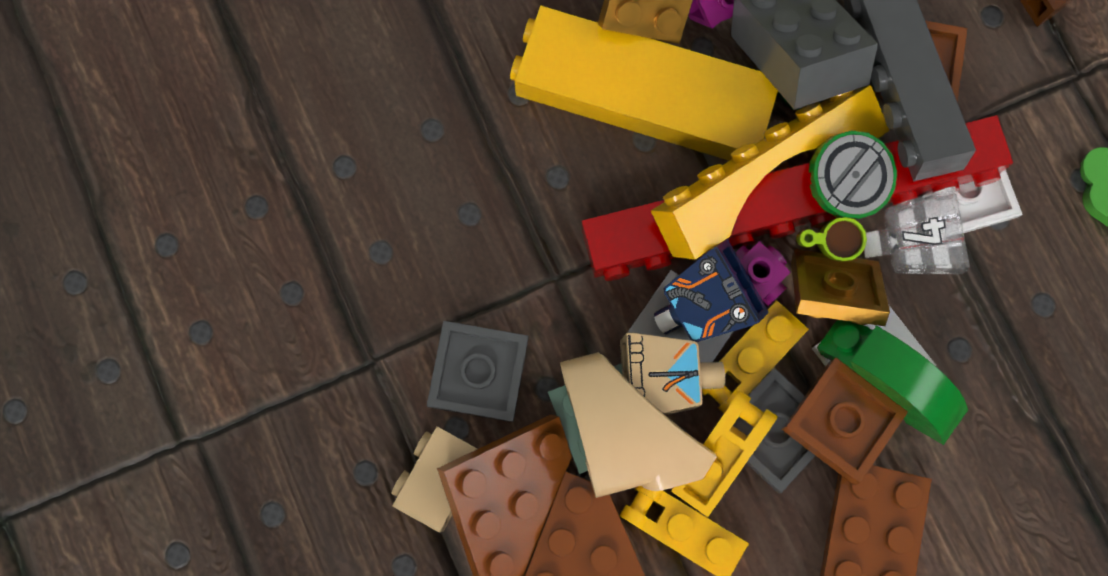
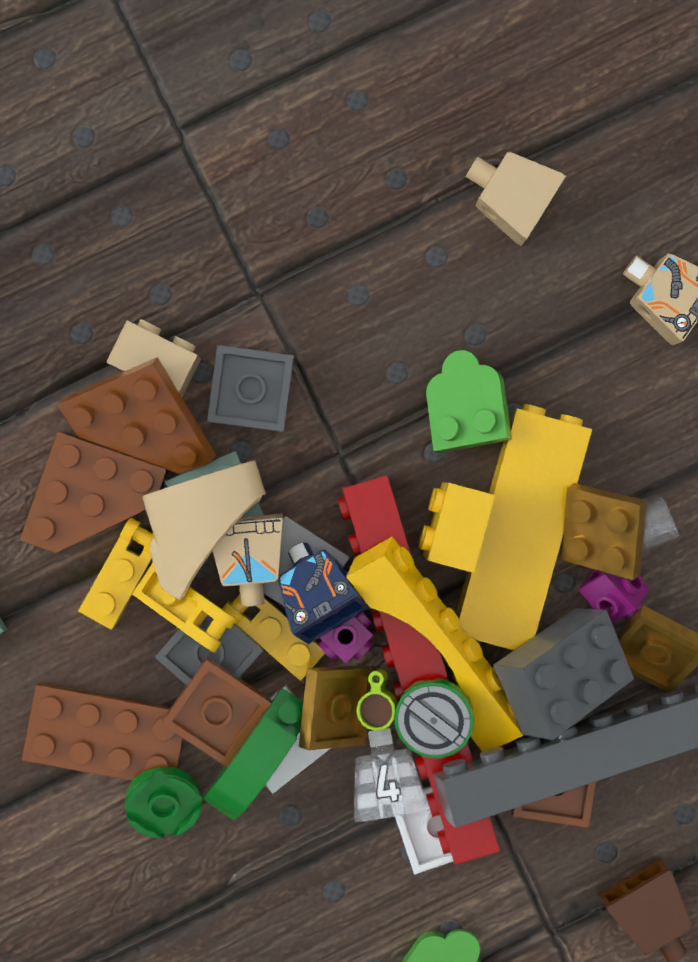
camera: 80 degrees right, 10 degrees up
(282, 78) = (514, 193): none -> tan torso
(507, 135) = (467, 405): none -> bright green plate
(639, 147) = (456, 526): none -> yellow piece
(948, 490) = (163, 802): none -> green tile

